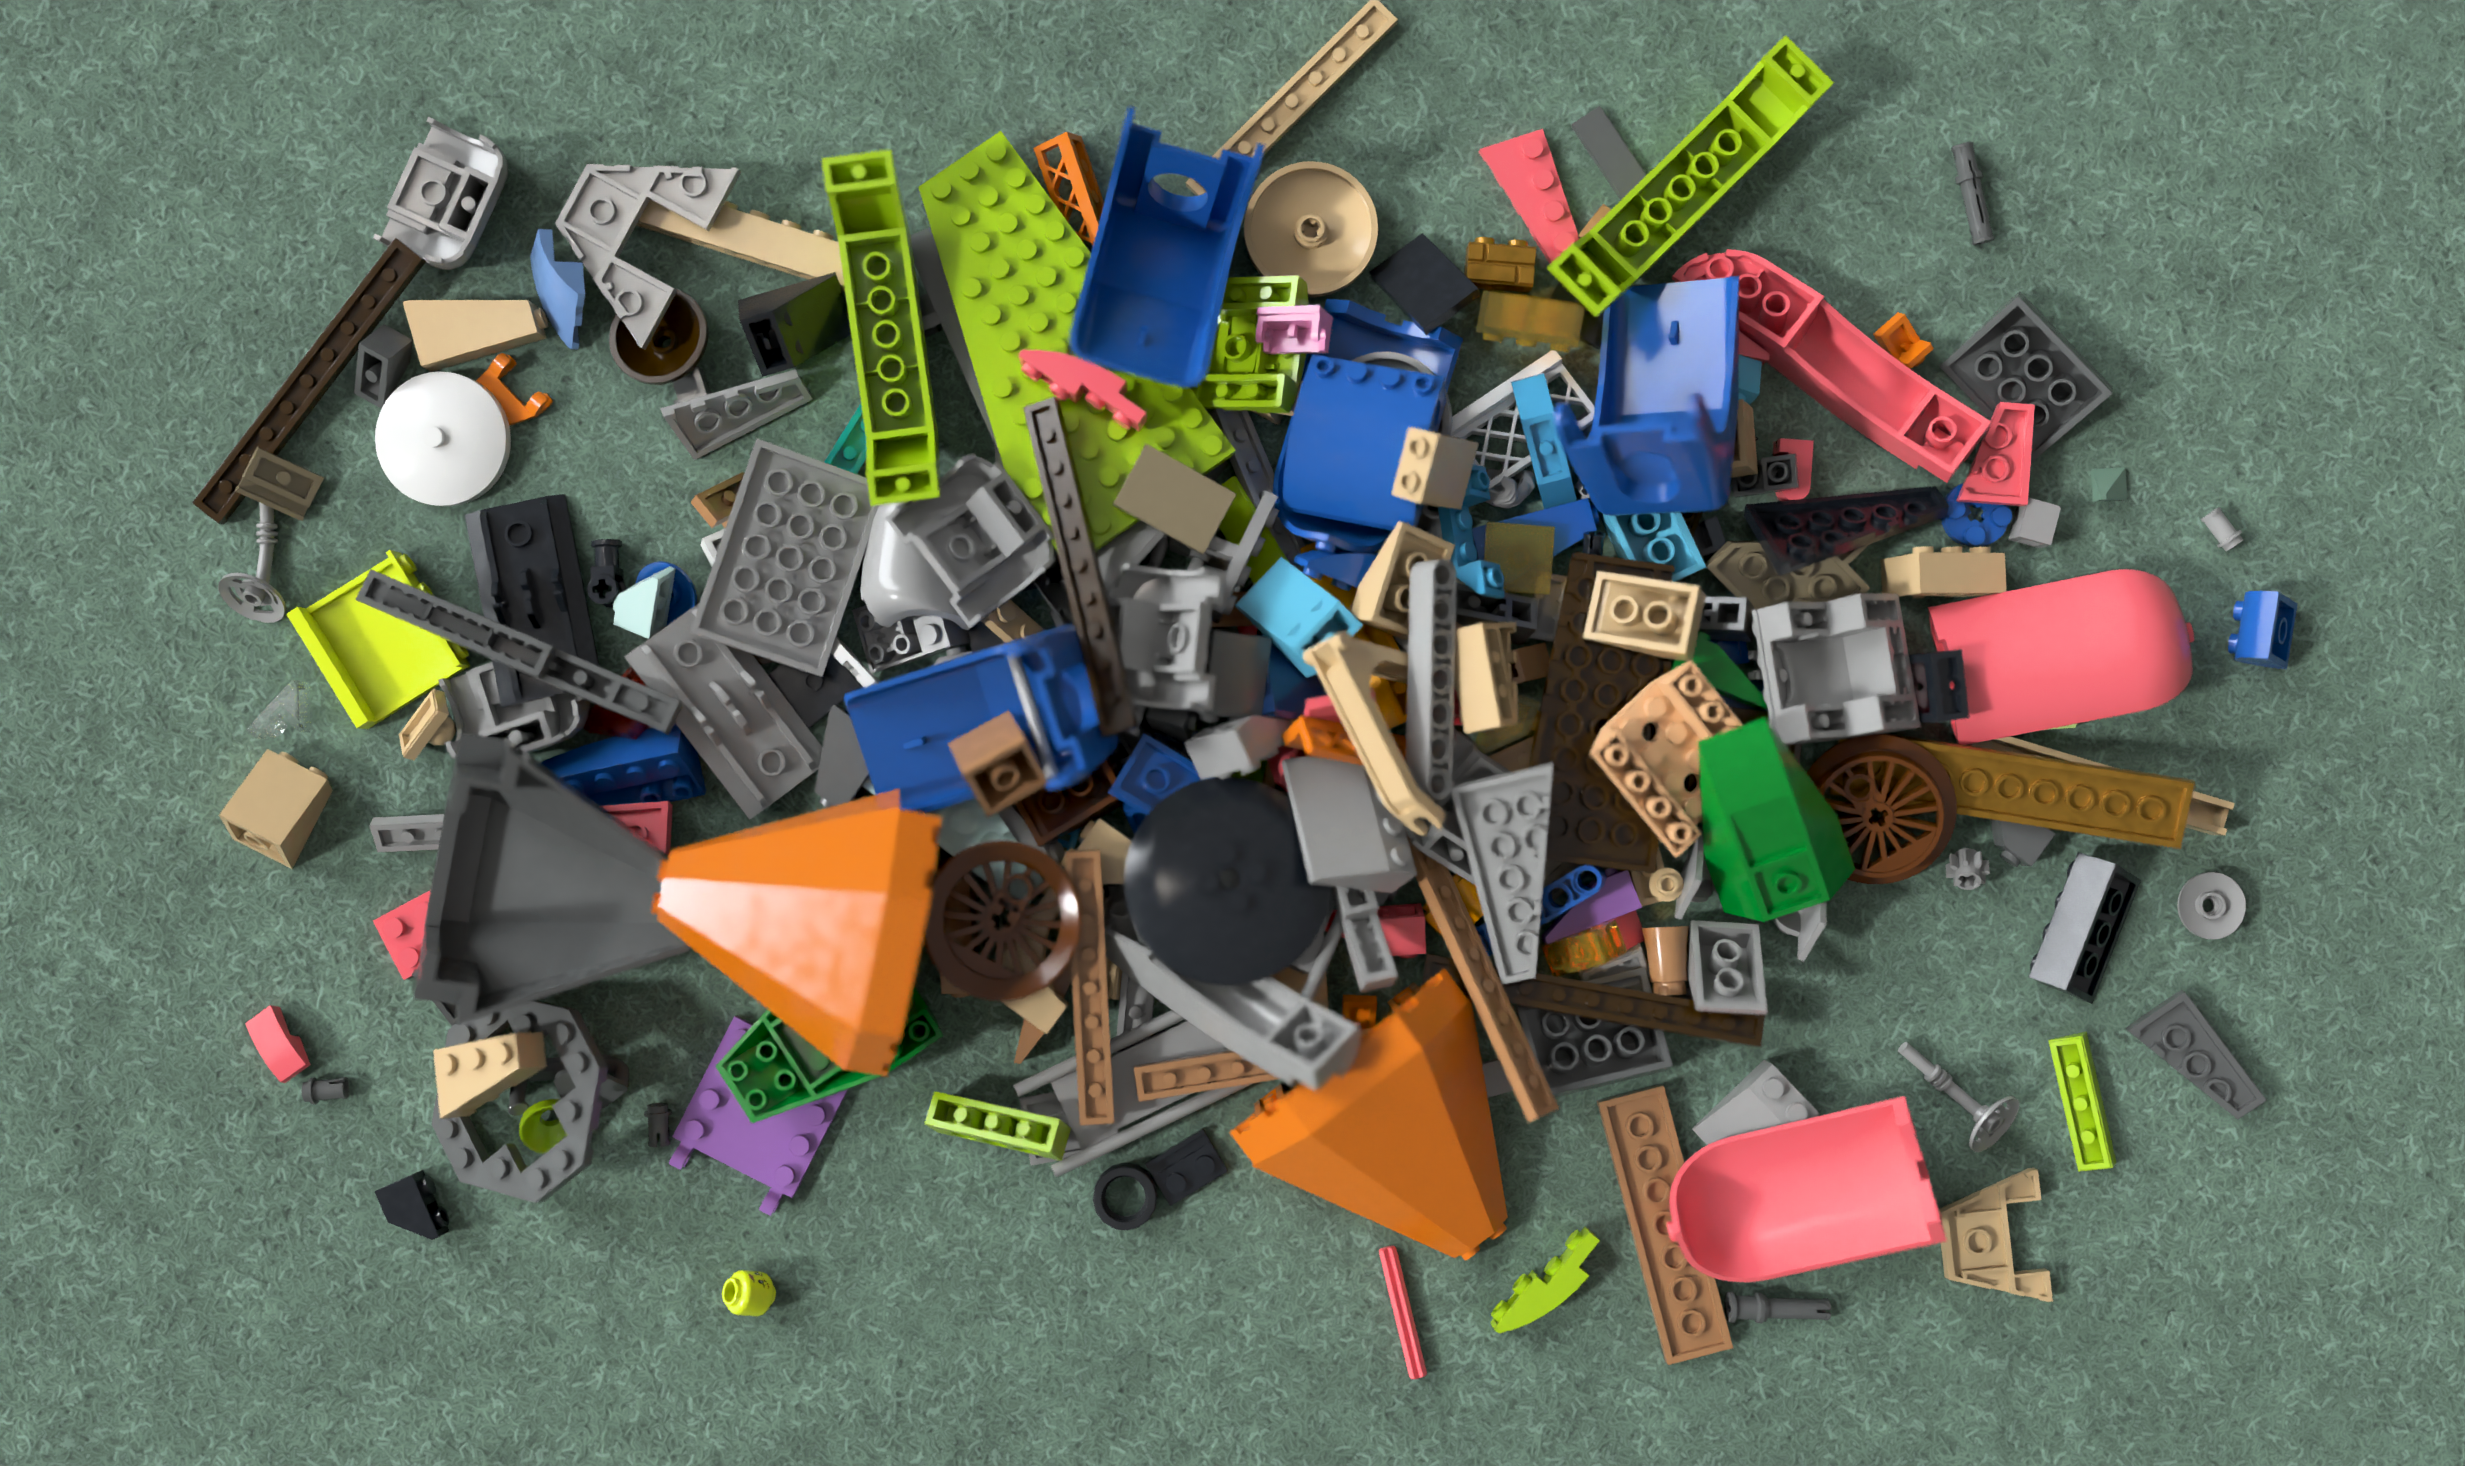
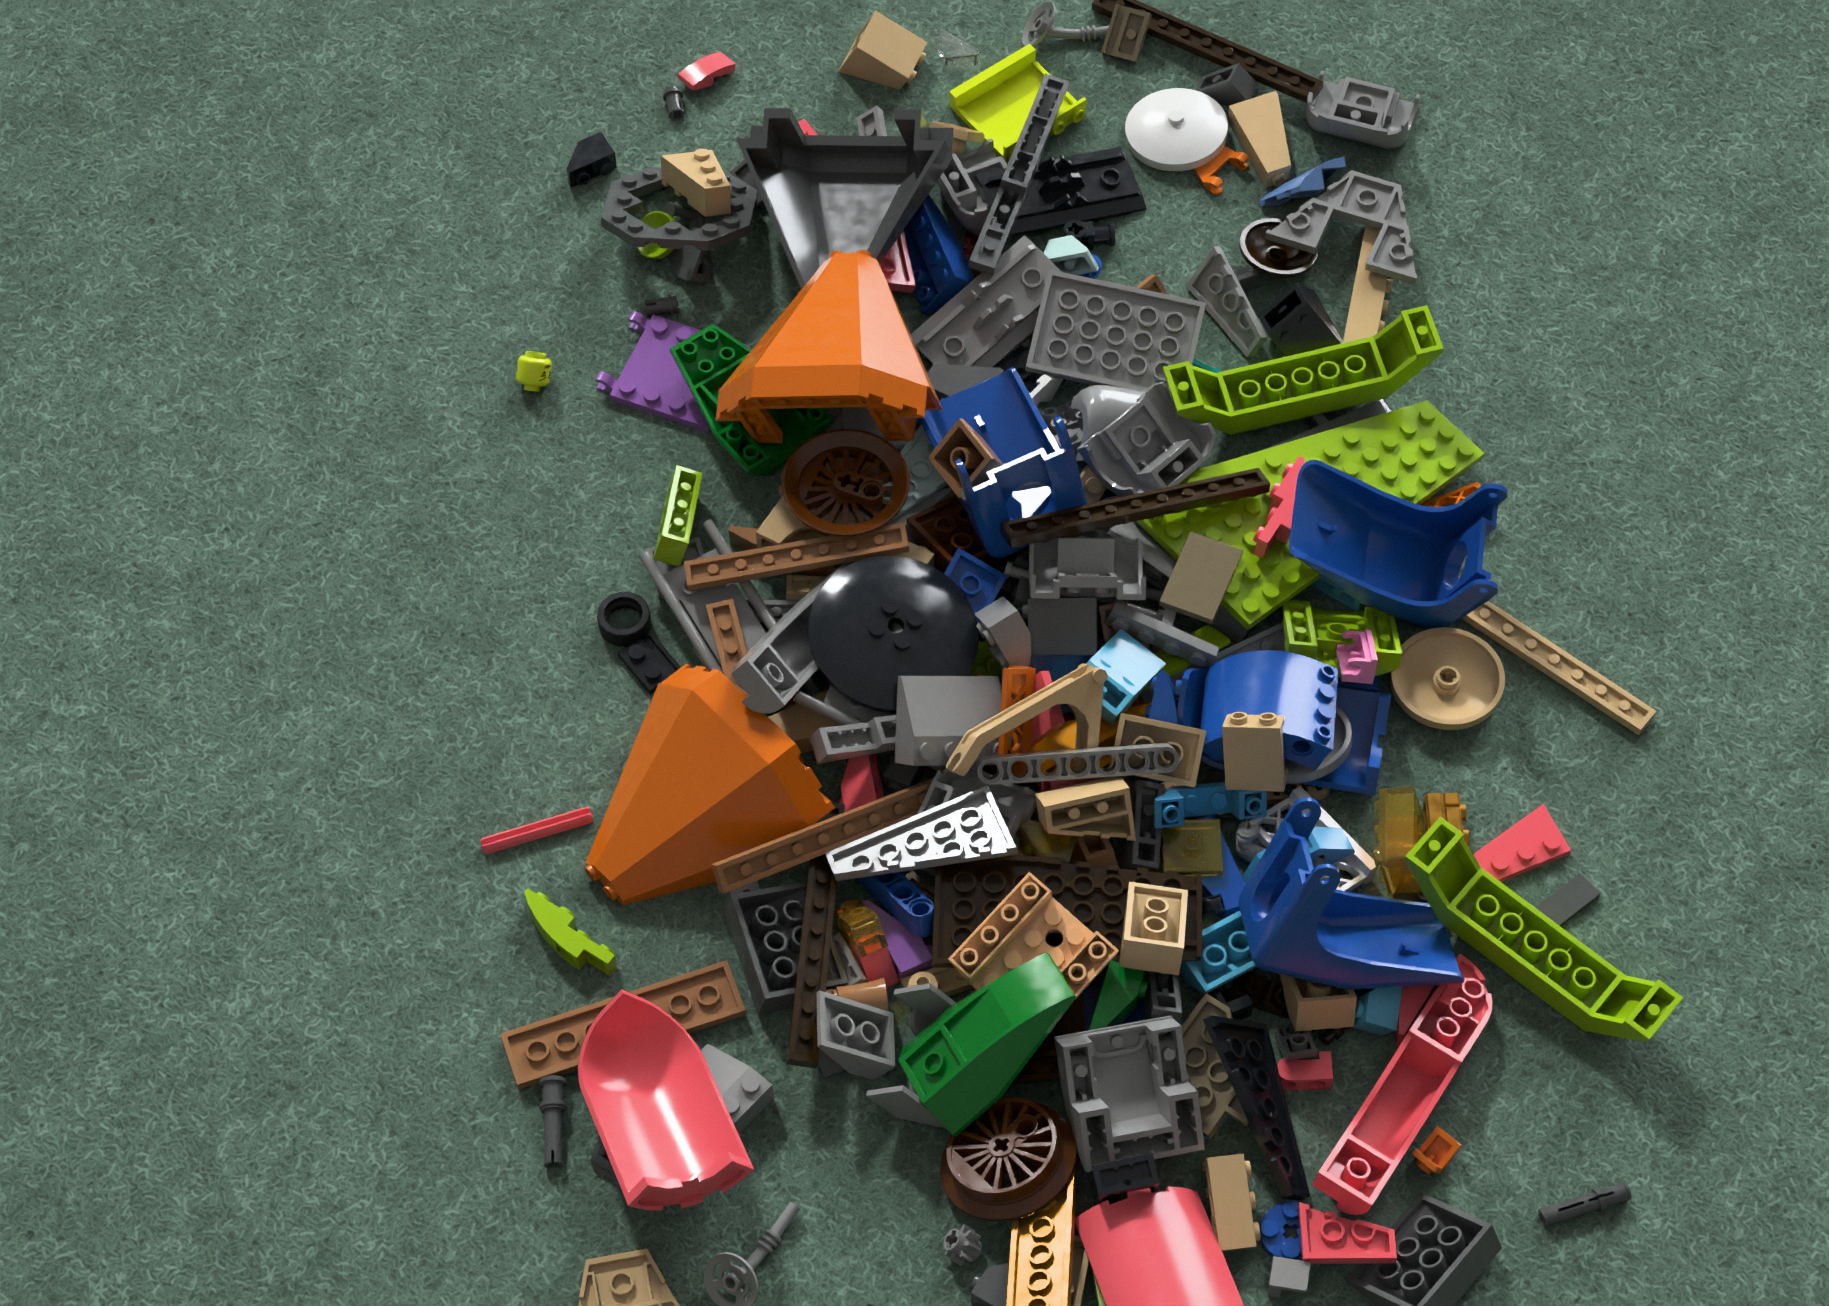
camera: 90 degrees right, 30 degrees down
(1424, 284) = (1416, 762): black tile -> none

